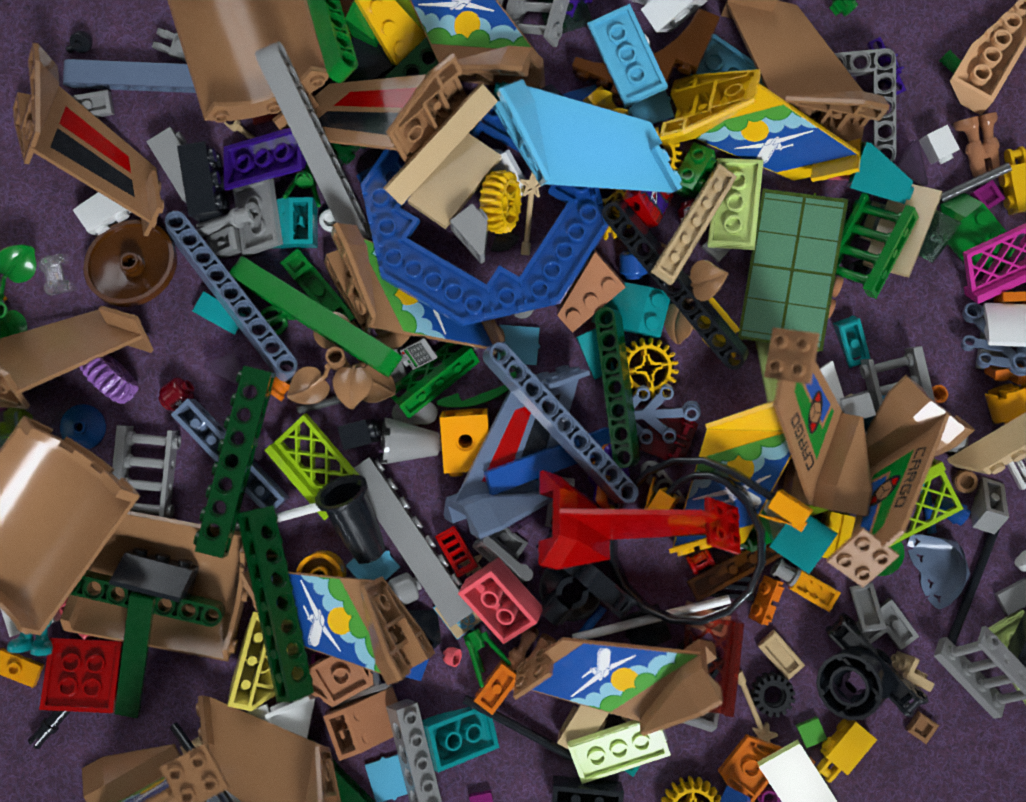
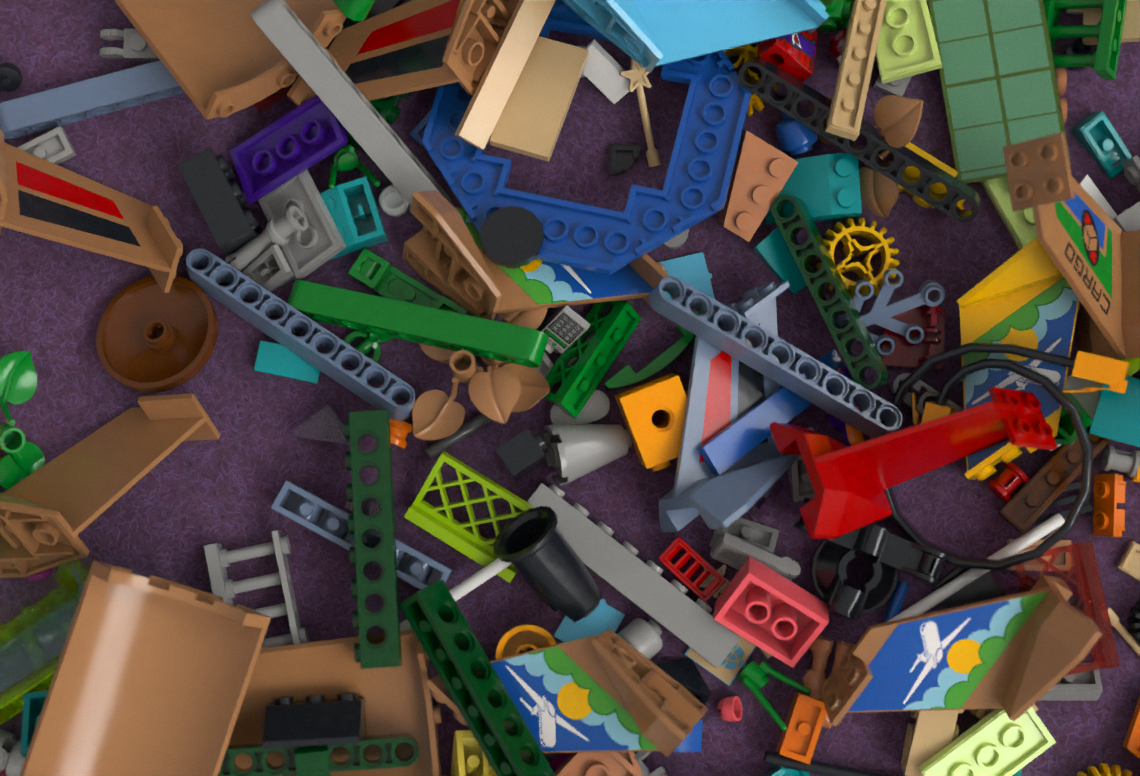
camera: 15 degrees left, 5 degrees down
(54, 275) = (63, 380): clear piece -> none
(92, 421) = (165, 551): blue dish -> none
(100, 213) = (100, 281): white brick -> none
(111, 378) = (178, 488): medium lavender gear -> none
(165, 150) = (164, 179): light grey slope -> none
(175, 393) = (265, 482): dark red head -> none
(236, 126) = (239, 121): tan hand -> none
(399, 276) = (512, 237): none -> black tile
(472, 230) = (584, 152): light grey slope -> none
(501, 201) = (604, 108): yellow gear -> none

